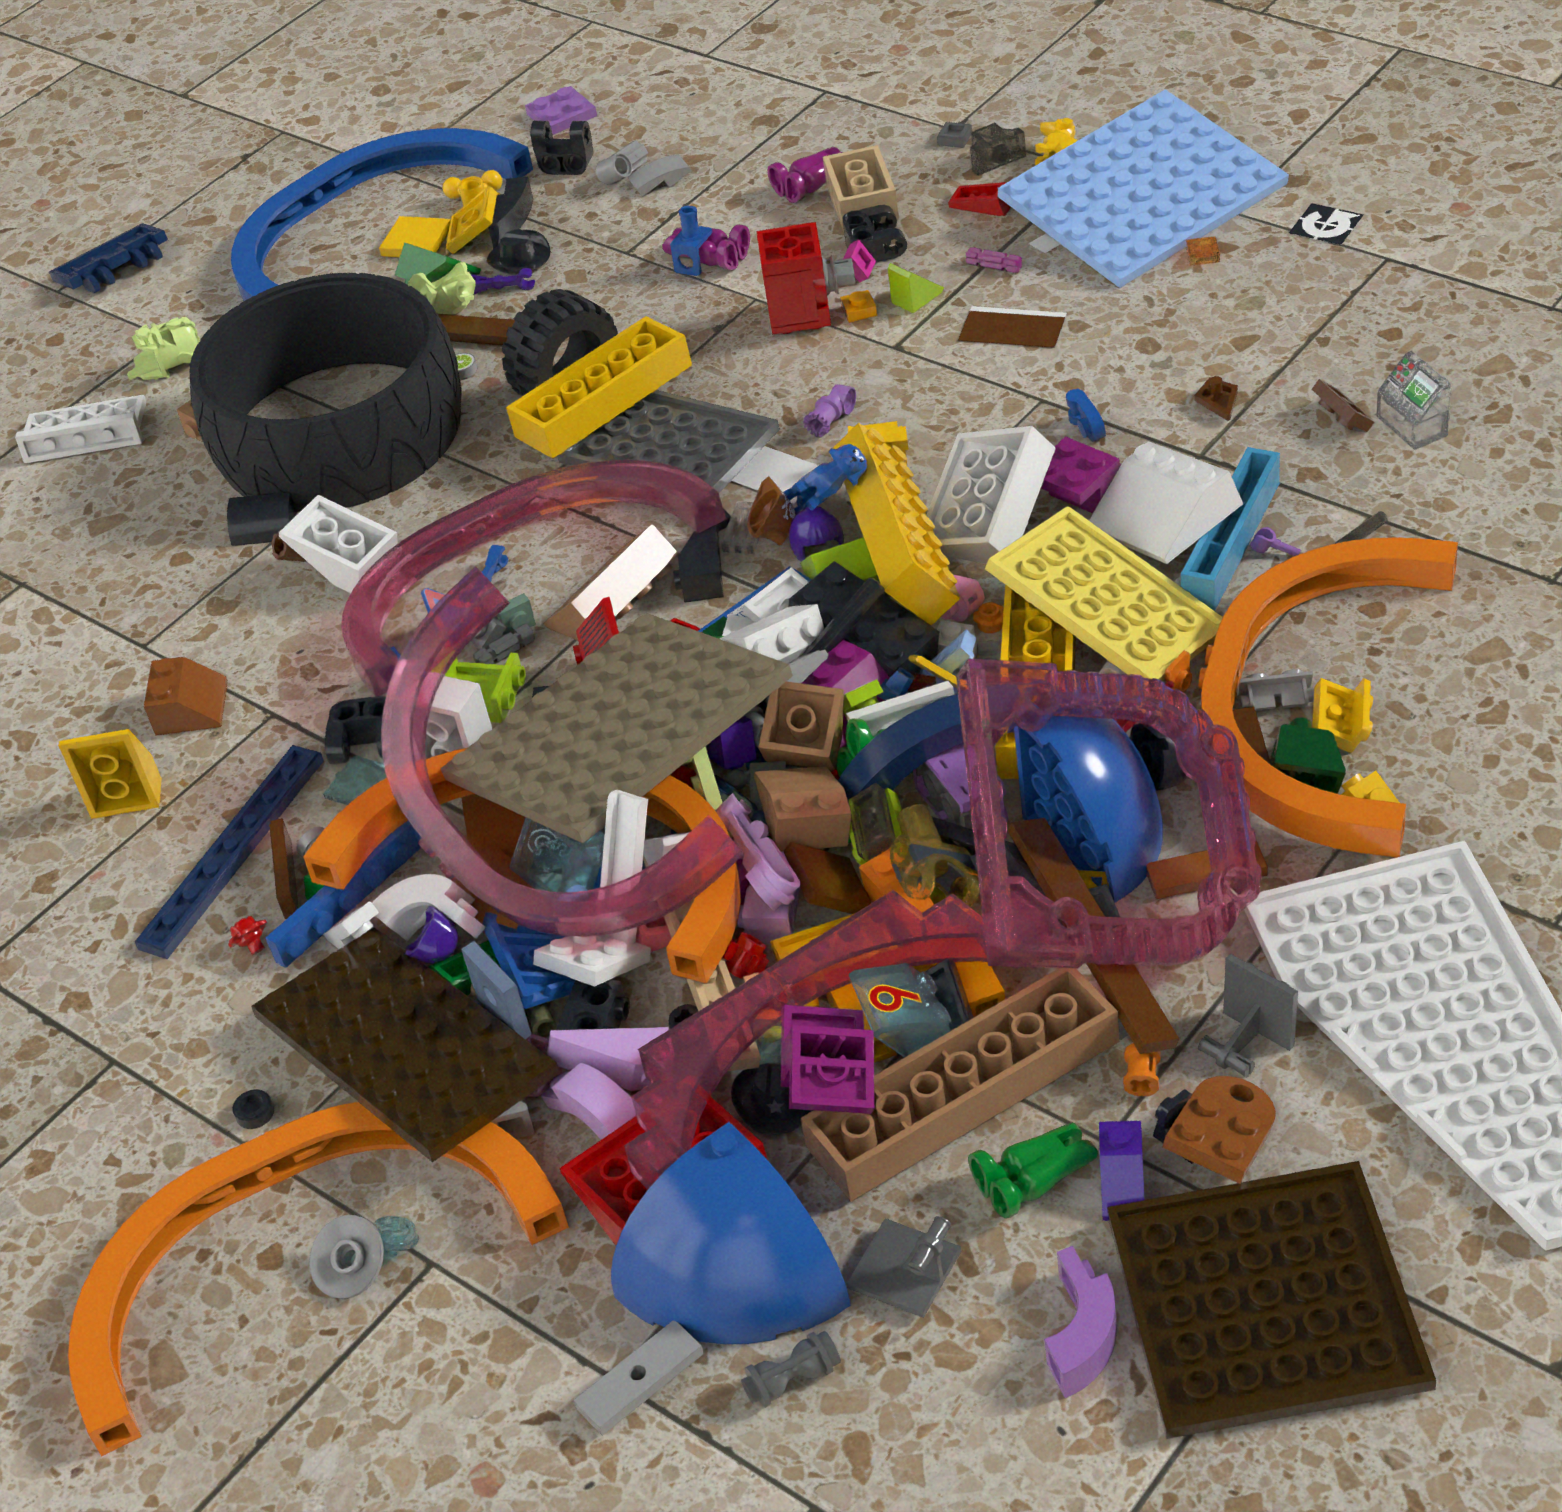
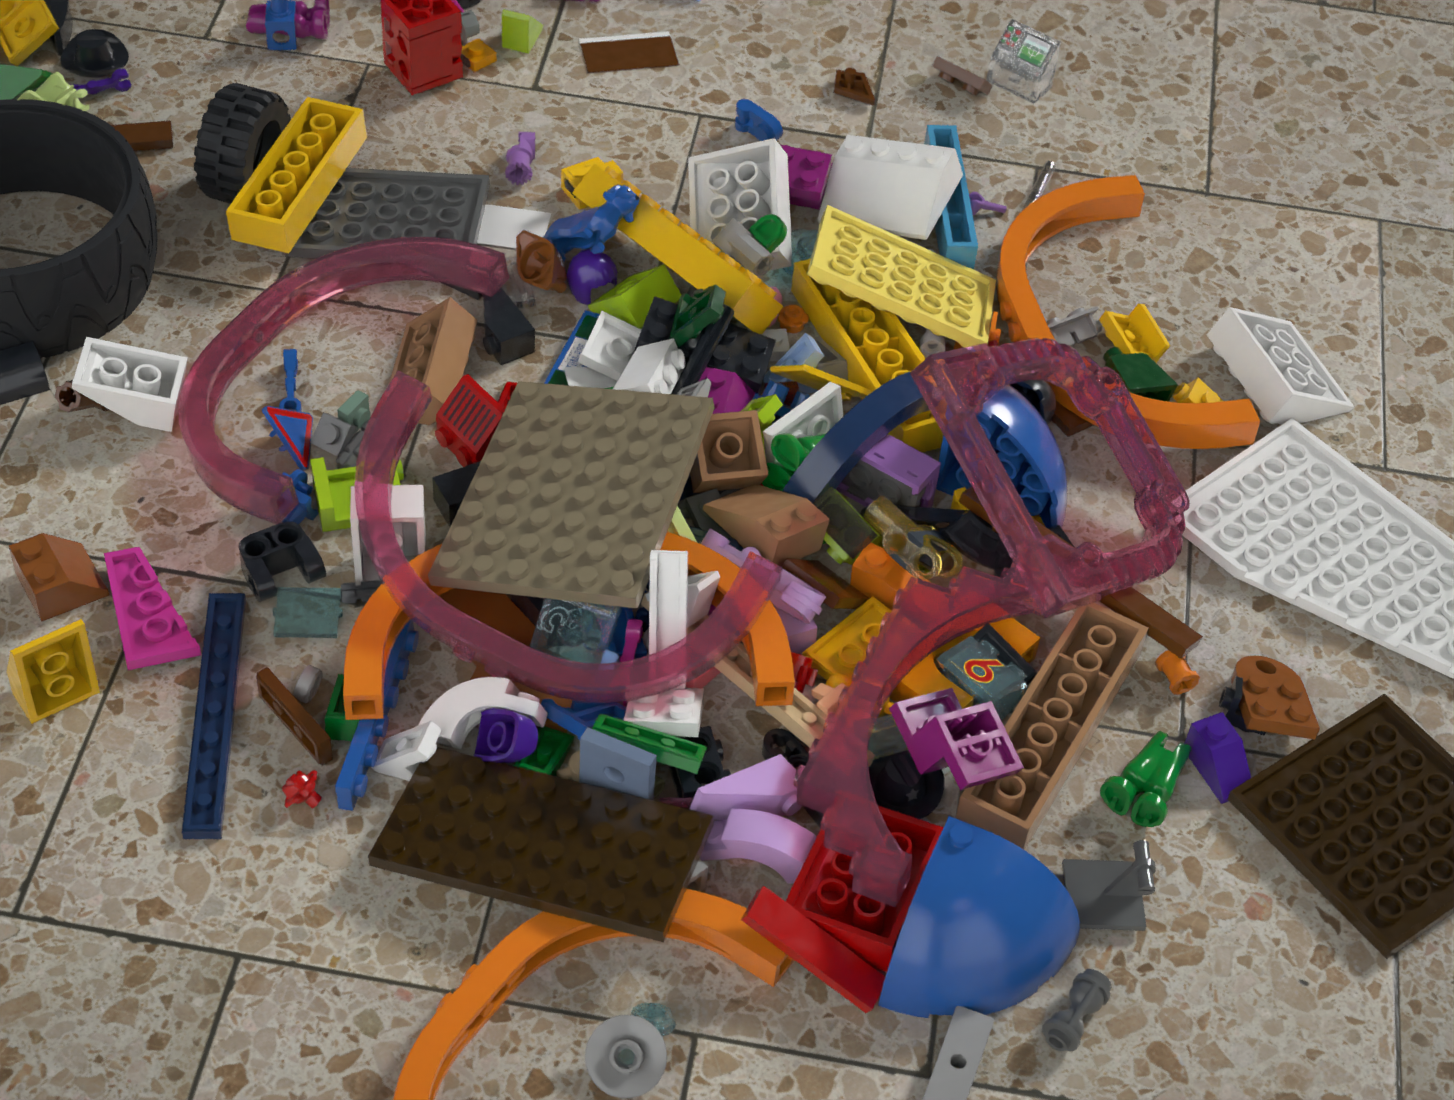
camera: 40 degrees left, 5 degrees up
(231, 748) = (145, 613): none -> dark pink wing
(253, 1109) = (423, 953): black tile -> none
(541, 978) = (668, 748): none -> green tile
(565, 1214) = (814, 949): none -> red tile
(844, 586) = (697, 312): none -> dark green wing
(952, 529) = (740, 245): none -> light grey piece
(985, 521) = (769, 231): none -> green tile
(1087, 1343) = (1280, 884): medium lavender arch -> none
(1185, 872) = (1101, 498): dark orange tile -> none
(1261, 1007) = (1242, 592): dark grey plate -> none
(1492, 784) = (1276, 368): none -> white slope

